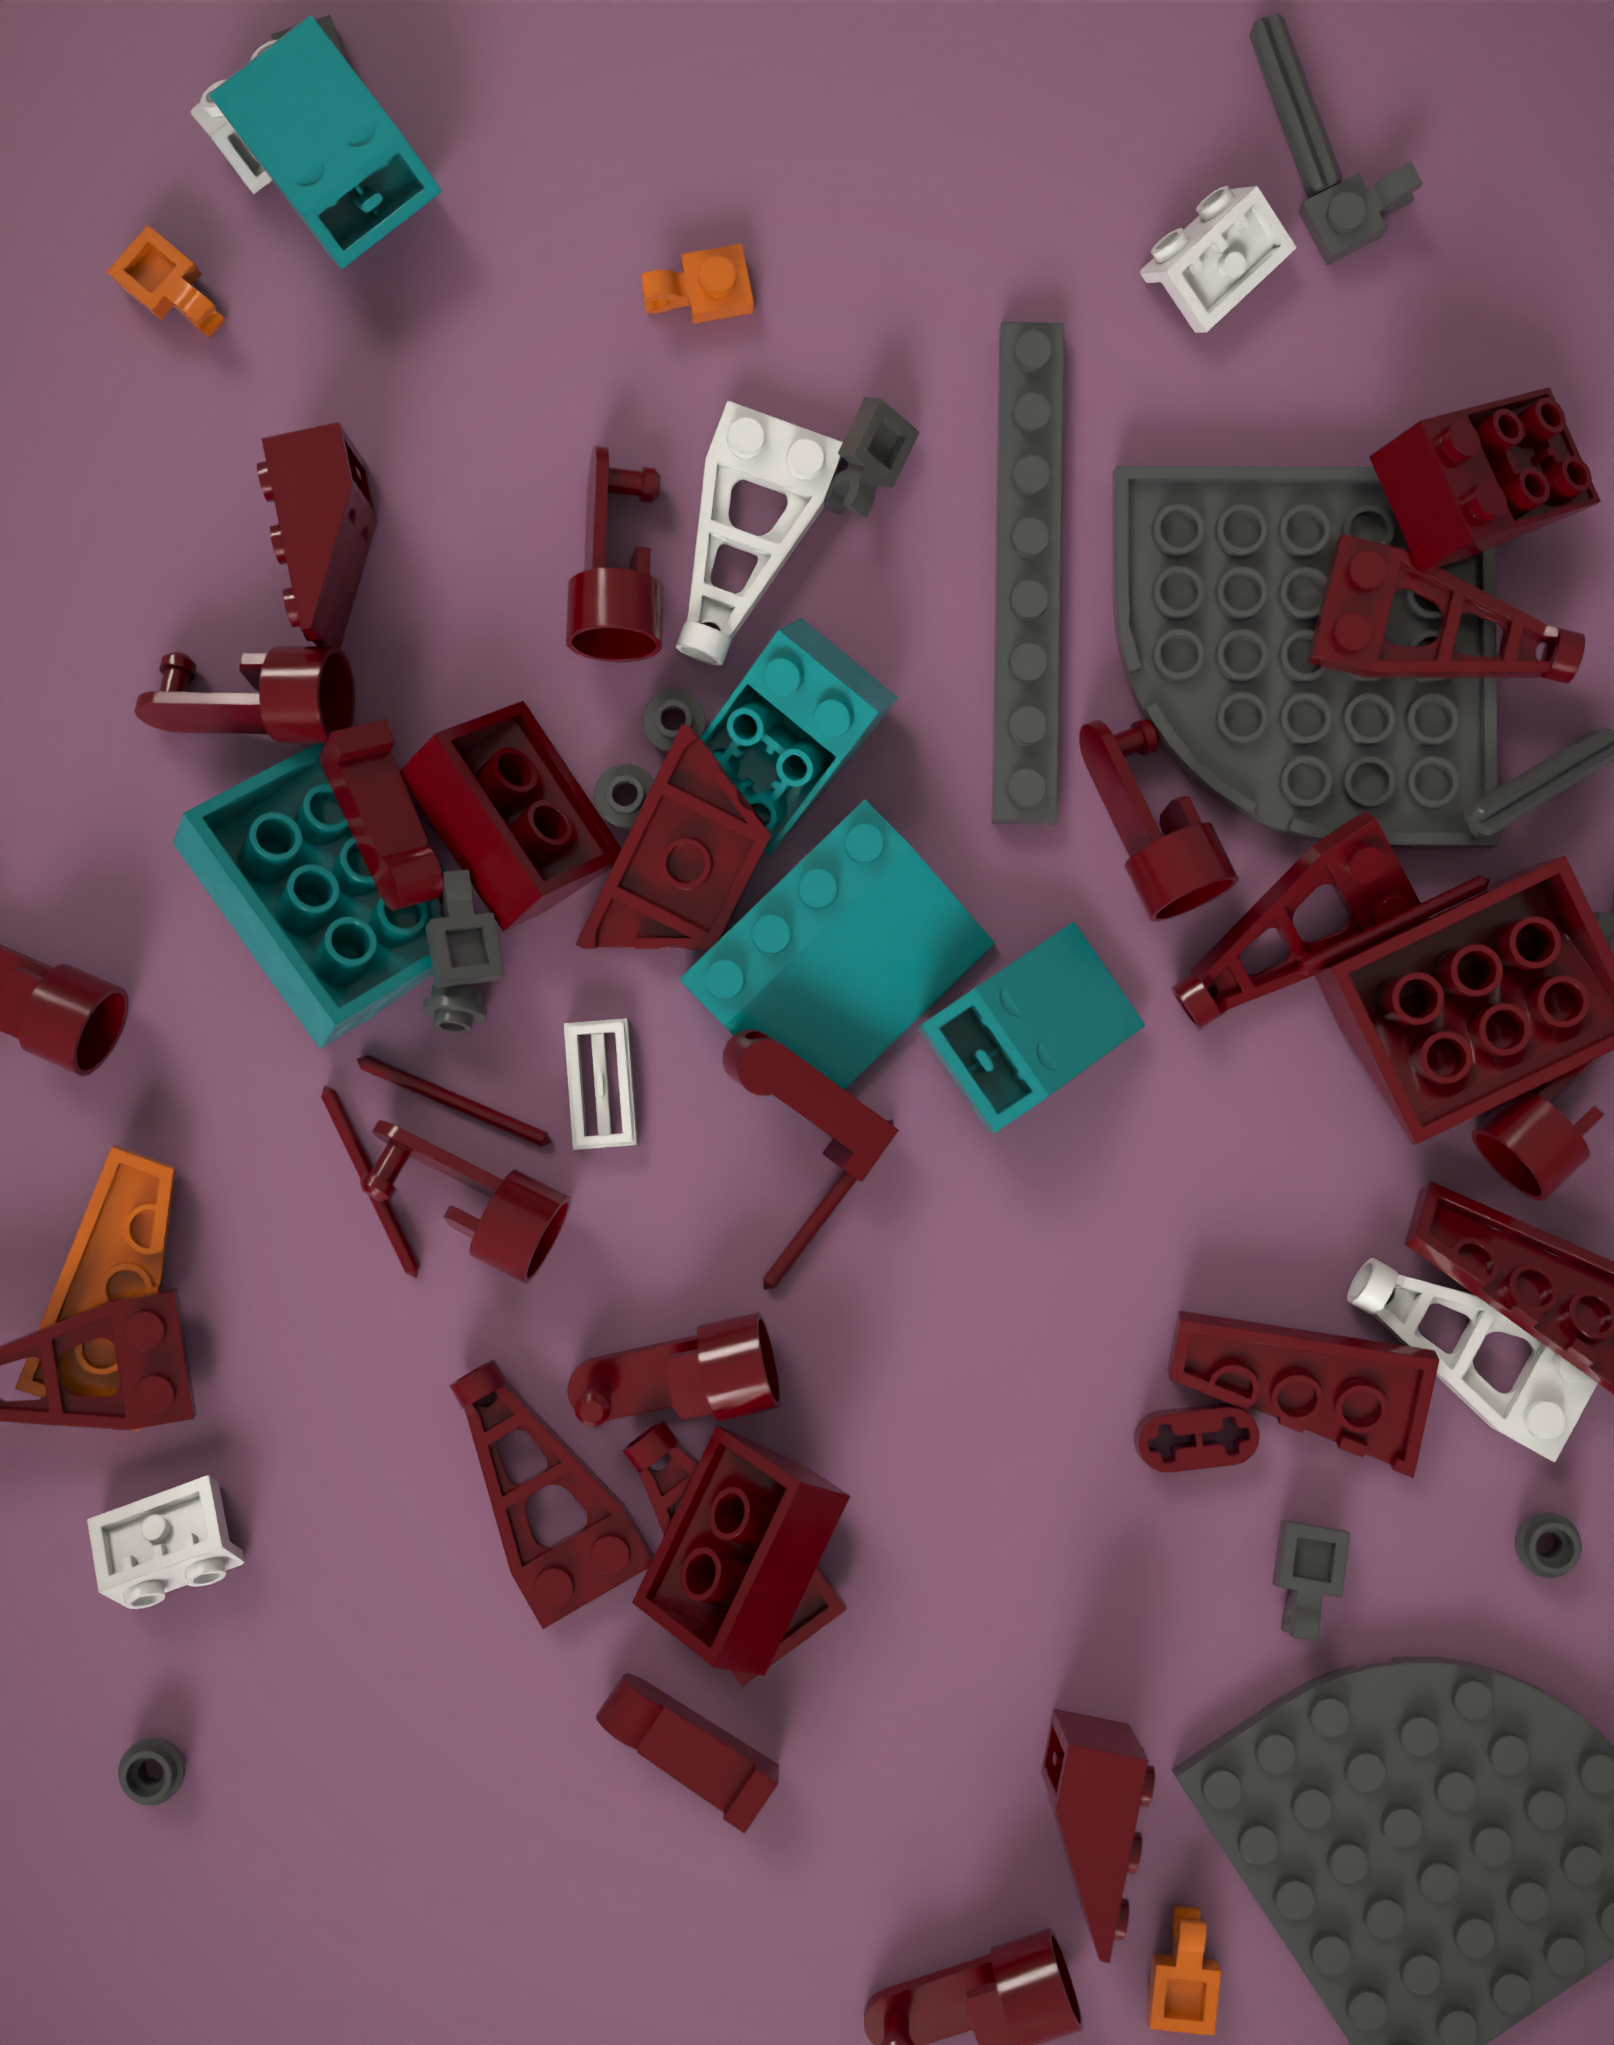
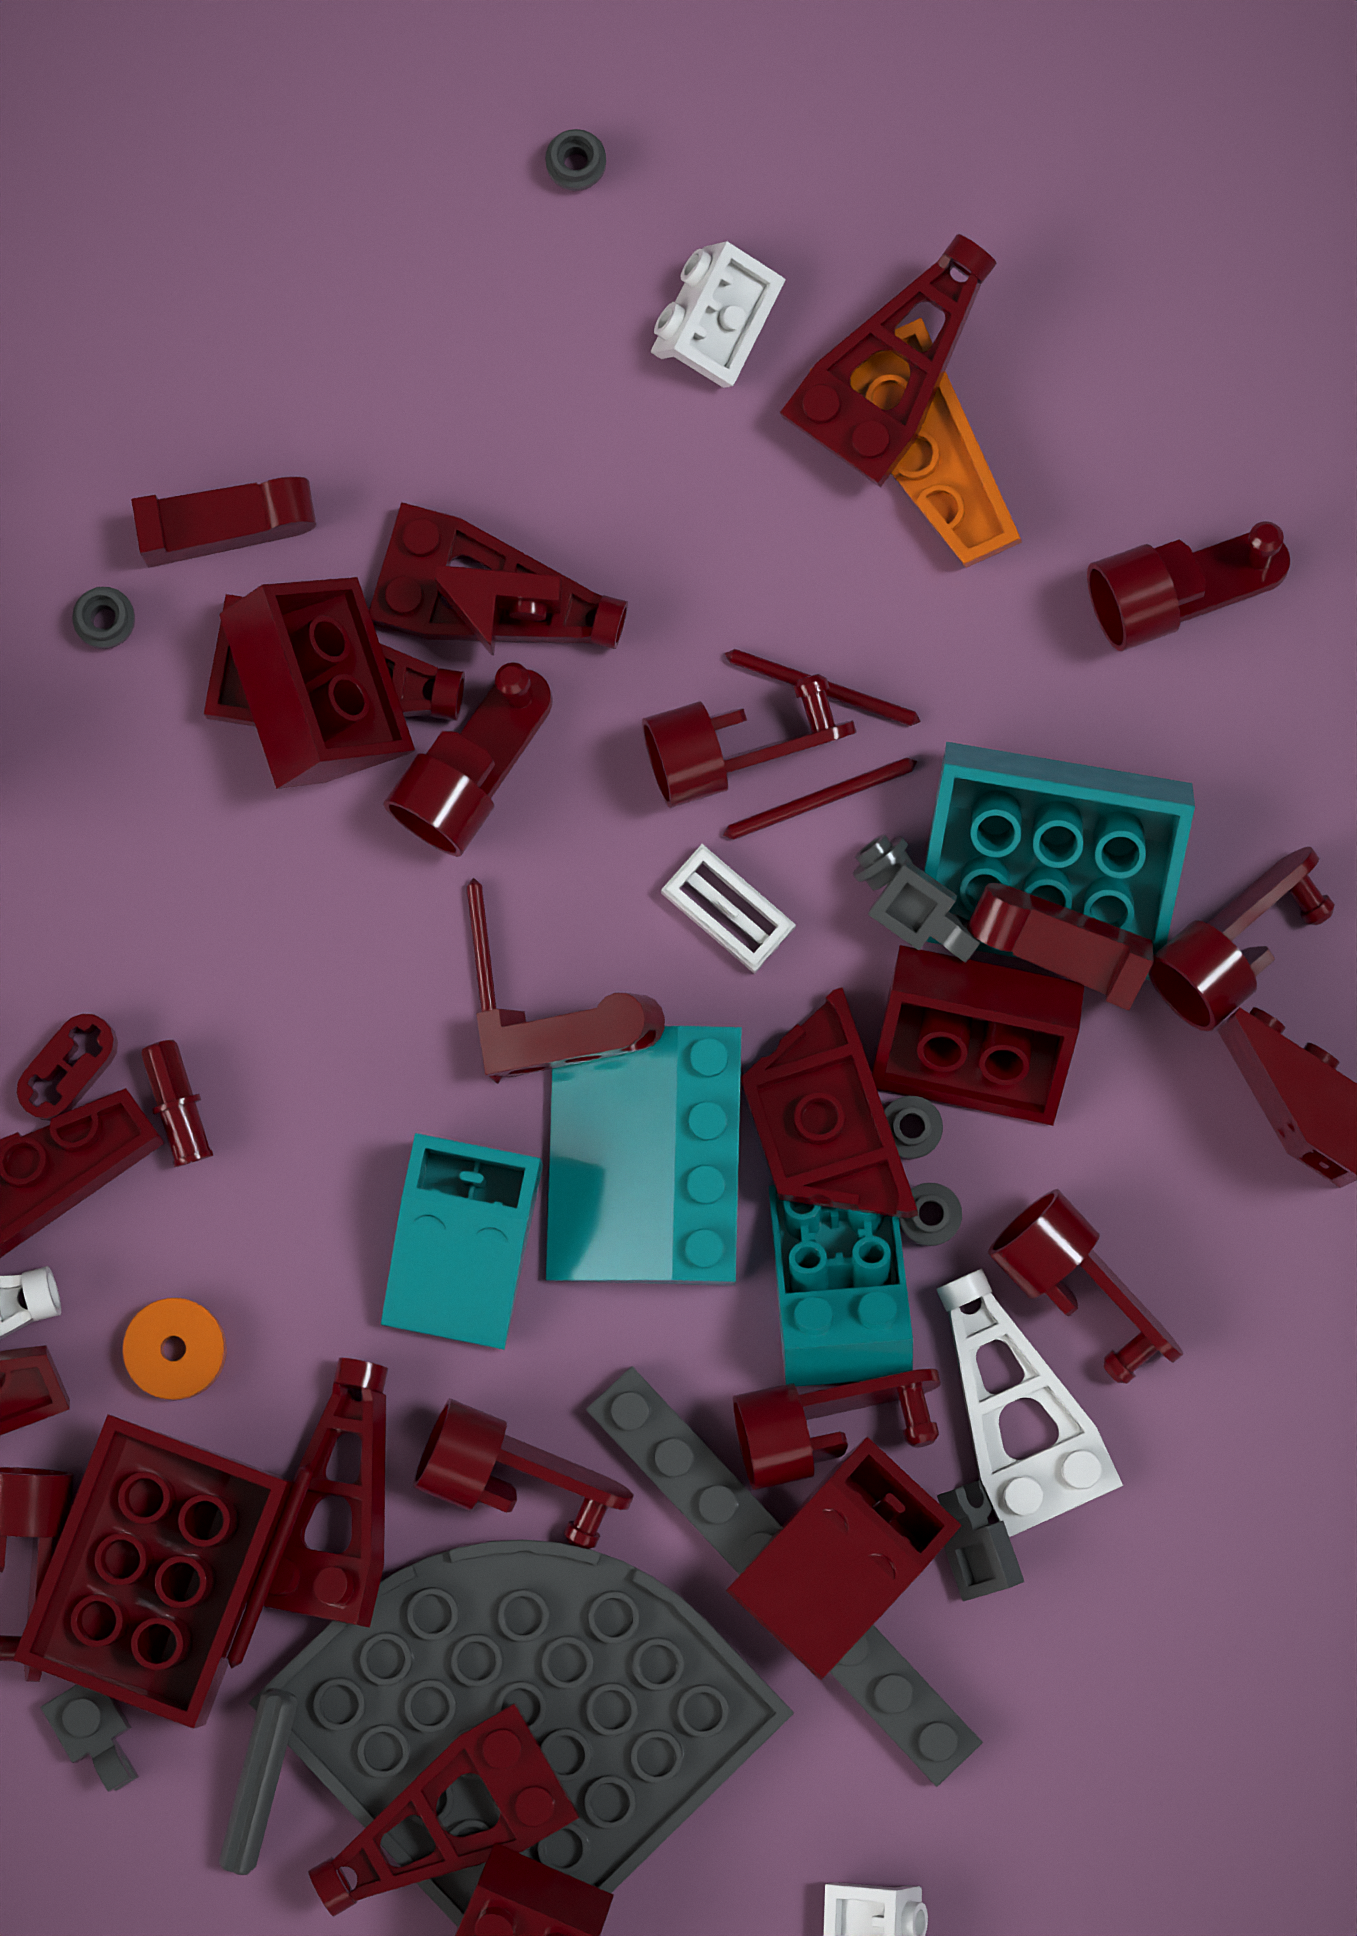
camera: 140 degrees right, 5 degrees down
(553, 1498) = (481, 592): none -> dark red slope
(710, 283) = (1221, 1562): orange plate -> none
(849, 1777) = (95, 601): none -> dark grey plate
(939, 666) = (776, 1433): none -> dark red piece
(978, 531) = (843, 1557): none -> dark red slope
(1142, 1332) = (176, 1103): none -> dark red axle
(1339, 1157) = (146, 1341): none -> orange piece

